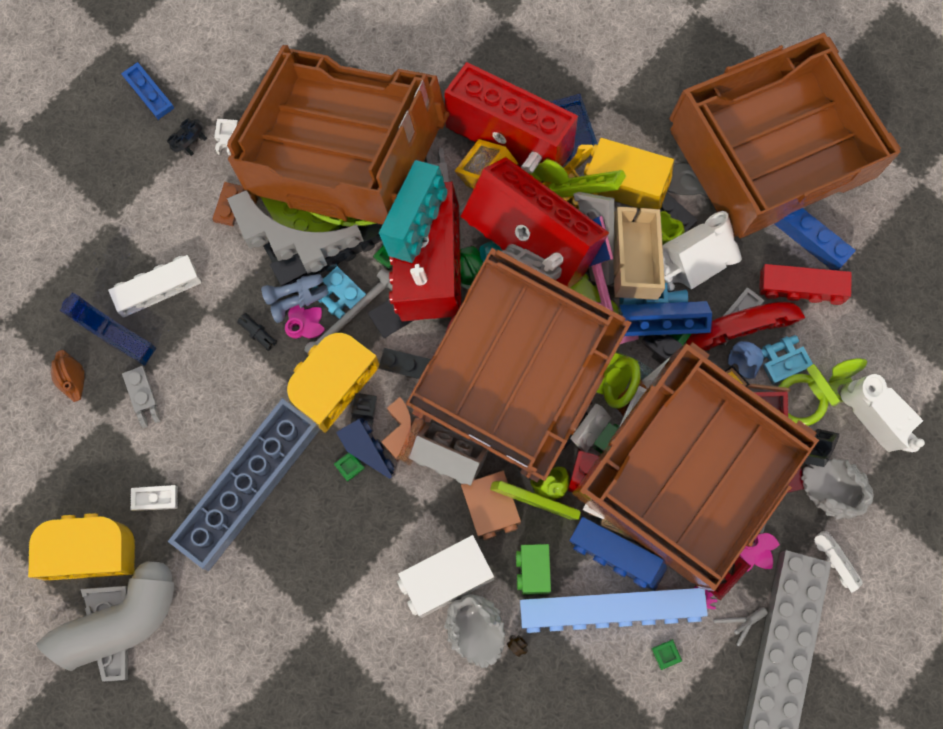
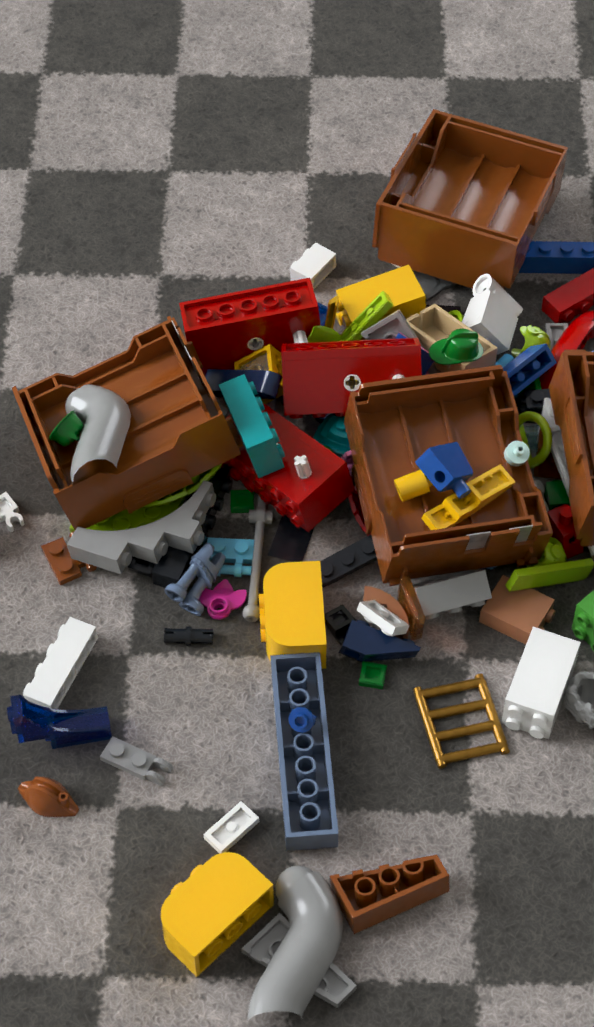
camera: 45 degrees left, 20 degrees down
(201, 633) = (388, 891): none -> dark orange wedge
(252, 466) = (301, 719): none -> blue plate
(283, 113) = (67, 430): none -> green piece
(322, 120) = (105, 424): none -> light grey animal
(356, 529) = (436, 737): none -> pearl gold bar
(382, 434) = (383, 618): none -> white plate
(458, 164) = (265, 381): none -> dark blue beam
(473, 359) = (412, 485): none -> yellow brick
(506, 369) = (446, 468): none -> blue torso
(506, 403) = (483, 491): none -> yellow slope
(578, 389) = (516, 453): none -> light aqua tile
(617, 99) = (314, 264): none -> white piece
(629, 266) = (458, 348): none -> green piece
(718, 297) = (532, 336): none -> lime cap

